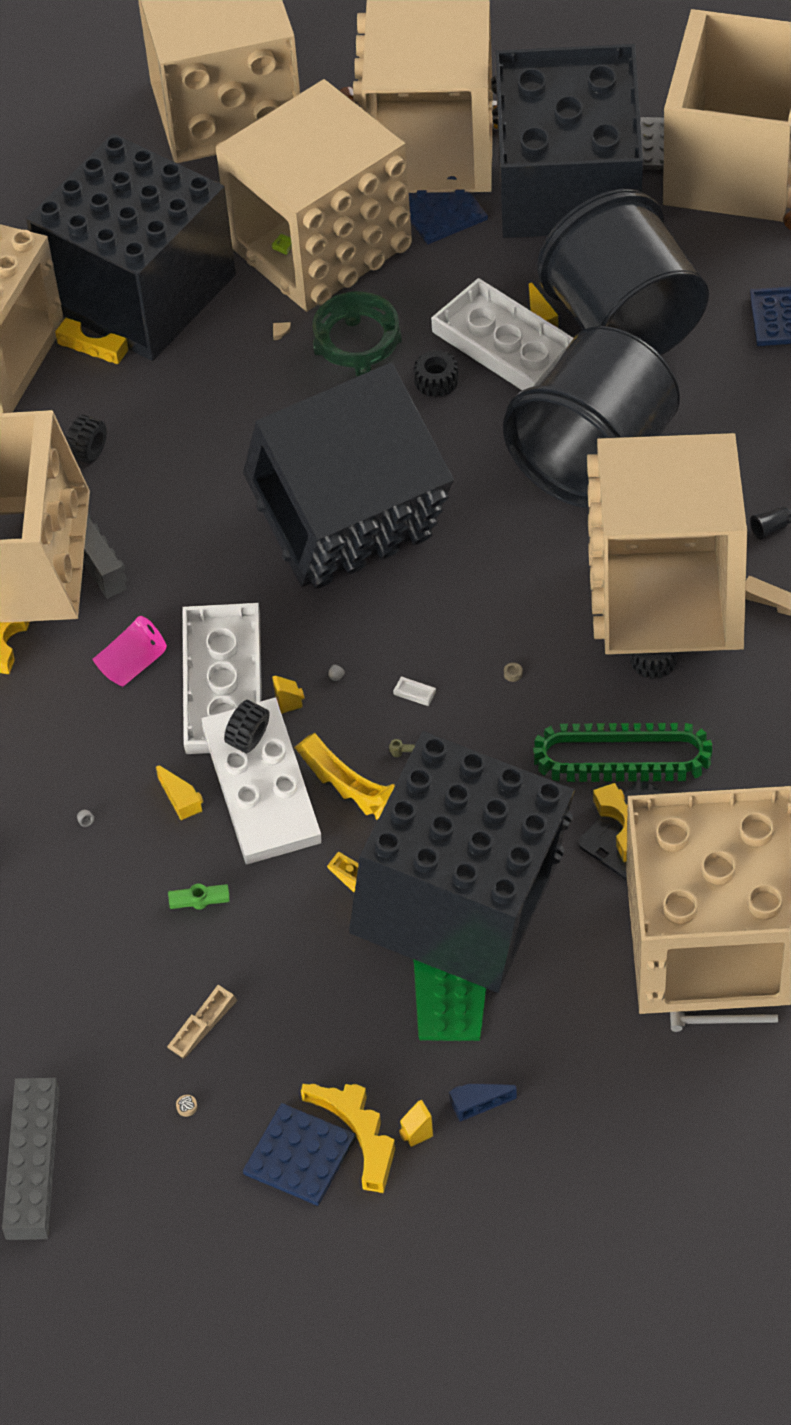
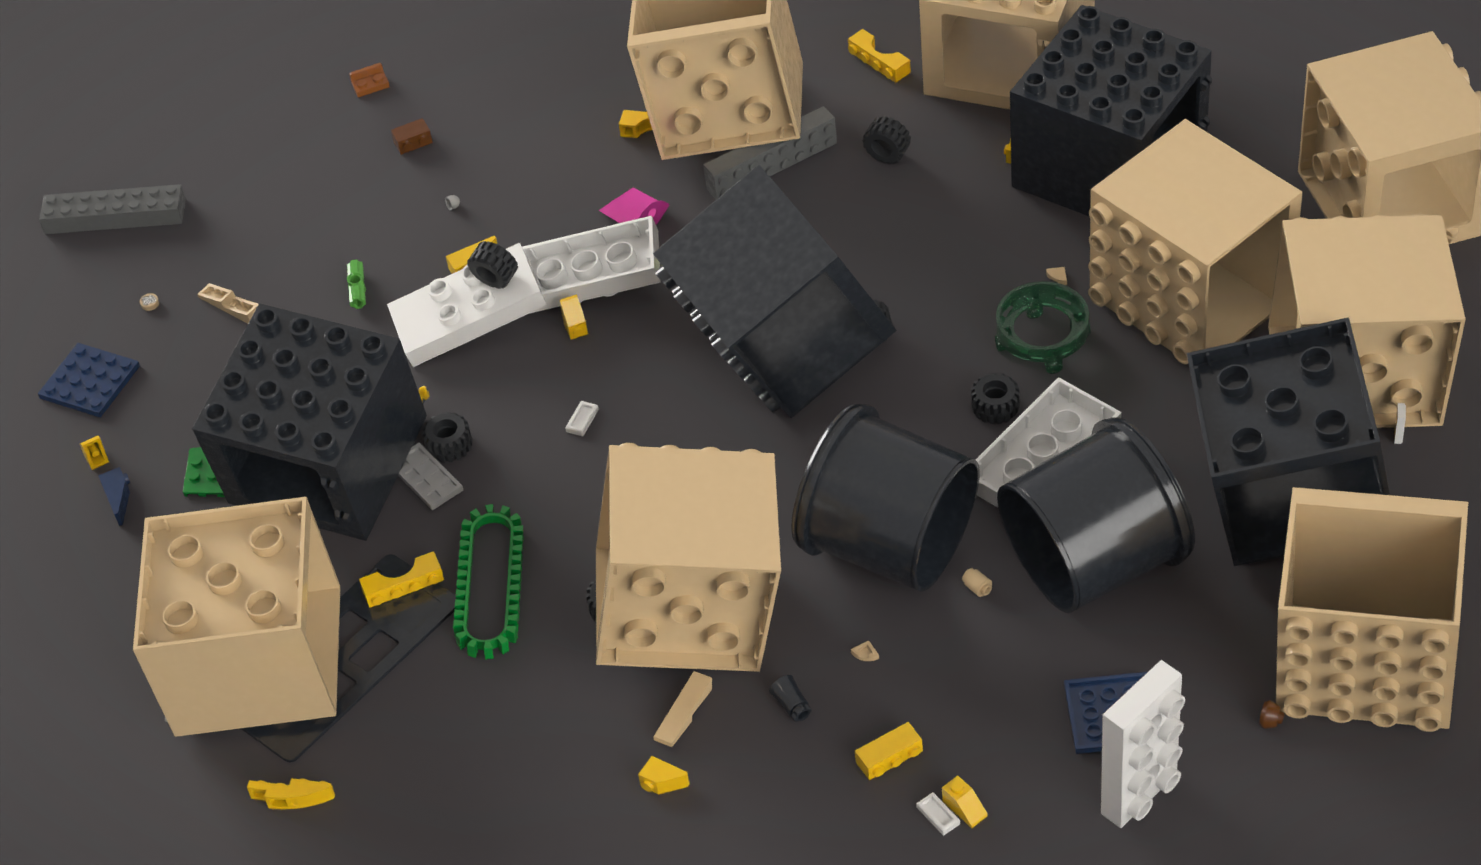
camera: 90 degrees right, 5 degrees down
(336, 673) = (604, 356): light grey hinge -> none
(347, 782) = (482, 355): yellow arch -> none
(349, 1107) = (77, 426): yellow arch -> none
(397, 748) = (512, 409): olive bar -> none
(513, 672) = (597, 492): dark tan tile -> none

